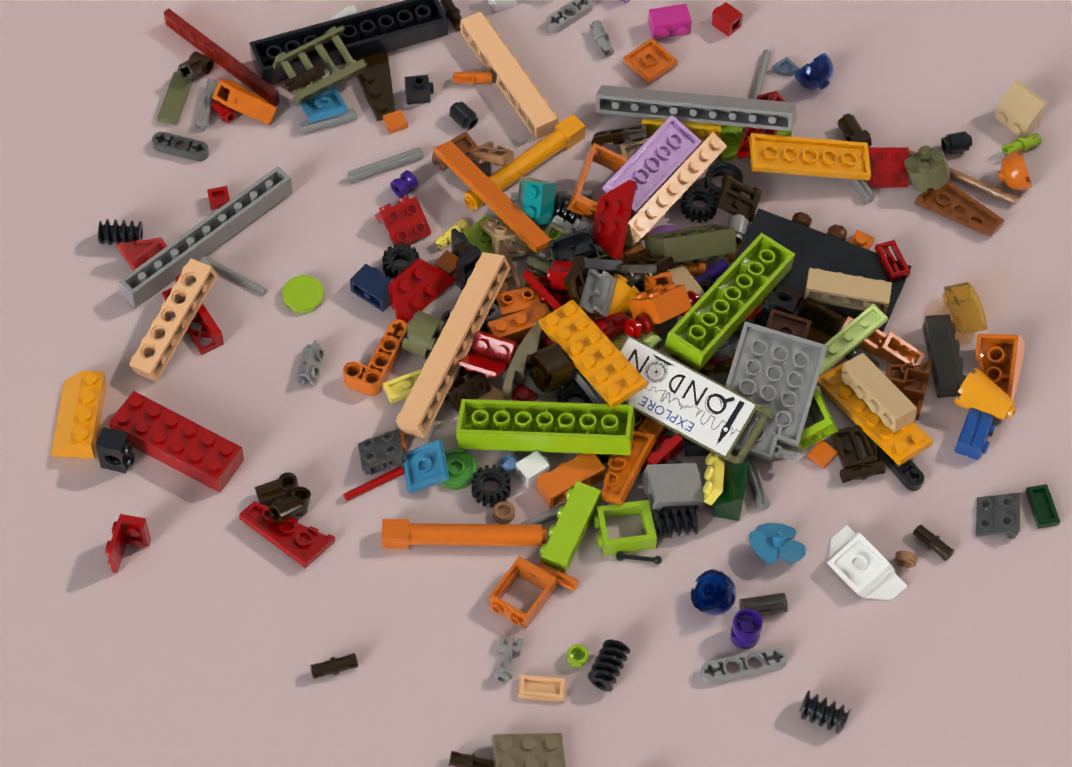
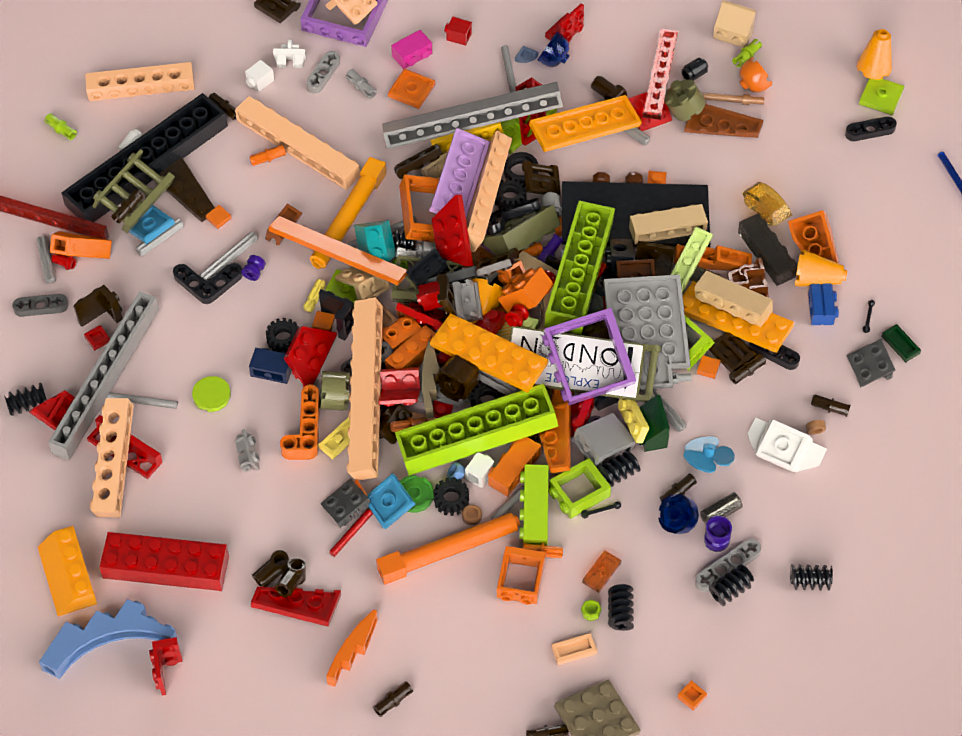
camera: 20 degrees left, 0 degrees up
(54, 487) = (103, 628): none -> medium blue arch
(114, 450) = (115, 589): black brick -> none
(175, 99) = (15, 264): olive tile -> none
(195, 65) = (20, 229): dark brown piece -> none
(230, 165) = (97, 303): none -> dark brown bracket
(325, 594) = (355, 643): none -> orange slope
(353, 188) = (208, 287): none -> black beam
(404, 221) = (269, 299): red bracket -> none
(418, 89) = (225, 182): black brick -> none
(463, 115) = (275, 190): black brick -> none
(467, 393) = (409, 422): none -> dark orange axle
(487, 153) = (313, 216): medium nougat wing -> none
(504, 673) = (536, 649): light grey hinge -> none
(608, 621) = (601, 571): none -> clear orange plate
(655, 384) = (618, 344): none -> medium lavender window
(672, 223) = (498, 218): none -> black beam
(734, 566) = (680, 487): none -> dark brown pin
(735, 686) = (730, 584): none -> black piece
(845, 51) = (568, 24): none -> red bracket
(896, 273) = (688, 186): red tile -> none
(914, 134) = (660, 74): none -> clear red tile
(1011, 477) = (866, 328): none -> black hinge

